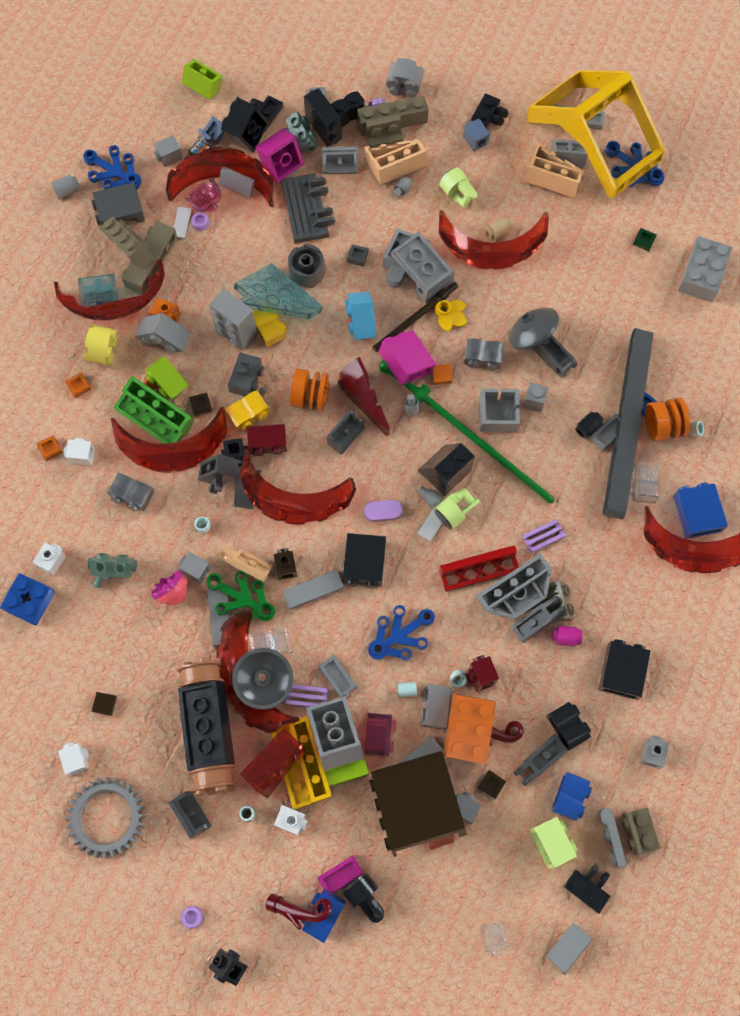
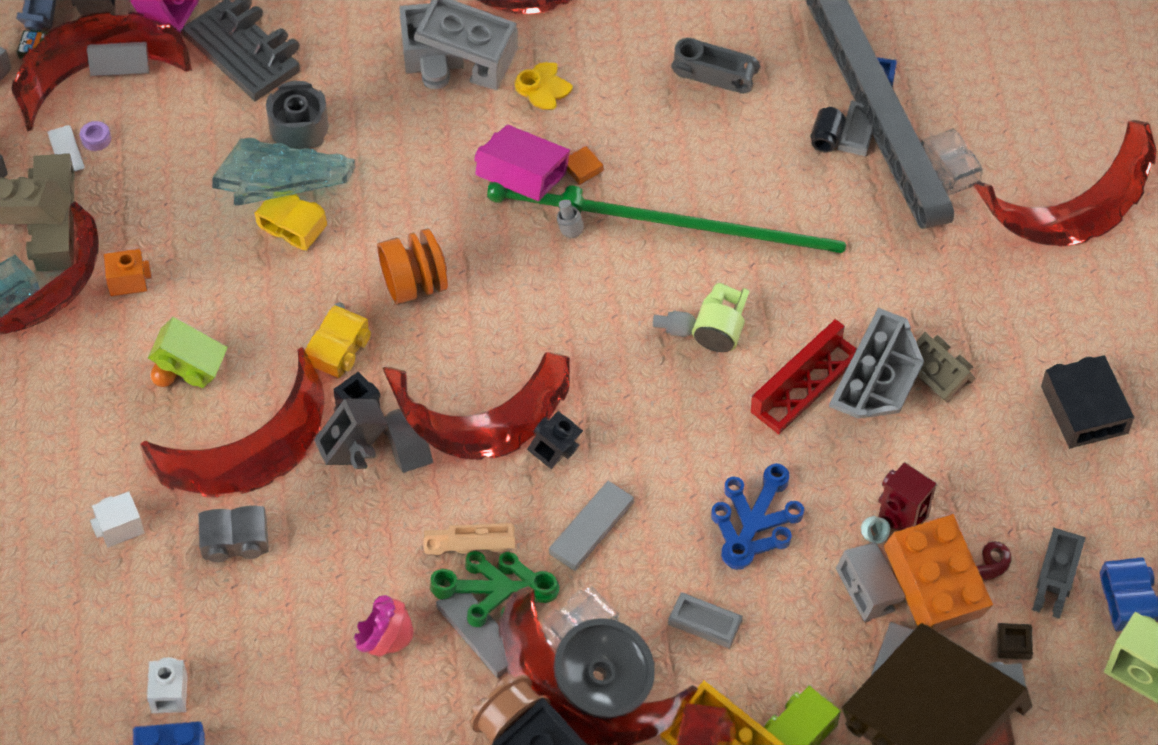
camera: 30 degrees left, 15 degrees down
(49, 448) = (62, 540): orange tile -> none
(78, 385) = (51, 435): orange tile -> none
(100, 344) = (56, 359): light yellow brick -> none
(108, 566) = (263, 650): sand green brick -> none
(153, 412) = (195, 408): bright green brick -> none
(162, 331) = (139, 294): light grey brick -> none
(194, 567) = (399, 581): light grey brick -> none
(200, 404) = (258, 369): dark brown tile -> none
(202, 525) = (368, 522): light aqua hinge -> none
(205, 197) = (86, 97): clear pink cylinder -> none
(233, 319) = (242, 226): light grey brick -> none
(245, 374) = (302, 297): dark grey brick -> none
(267, 439) = (399, 351): dark red brick -> none
(287, 570) = (529, 520): dark brown brick -> none
(307, 696) = (685, 679): lavender tile -> none
(322, 531) = (558, 434): none -> black brick
(335, 733) = (761, 679): light grey brick -> none
(345, 432) = (498, 301): dark grey hinge -> none
(356, 386) = (484, 236): dark red wedge -> none
(357, 255) = (359, 73): dark grey tile -> none
(361, 310) = (424, 139): medium azure brick -> none
(364, 560) = (639, 447): black brick -> none
(378, 735) = (817, 658): clear pink brick -> none
(383, 510) = (620, 374): lavender tile -> none
(407, 689) = (814, 581): light aqua hinge -> none
(430, 526) = (699, 360): white sticker -> none
(443, 294) = (513, 68): dark brown bar -> none
(448, 467) = (675, 268): black slope -> none
(484, 354) = (624, 110): flat silver brick -> none
(500, 414) = (697, 174): light grey piece -> none
(533, 328) = (673, 43): dark grey dish -> none
(535, 397) = (732, 129): light grey brick -> none
(537, 619) = (930, 397): dark grey hinge -> none
(557, 529) = (852, 290): lavender tile -> none
(567, 636) = (983, 399): dark pink brick -> none
(569, 726) = (1063, 507): black brick -> none
(667, 419) = (926, 69): orange wheel -> none
(696, 428) = (968, 68): light aqua hinge -> none
(700, 510) = (1044, 160): blue brick -> none

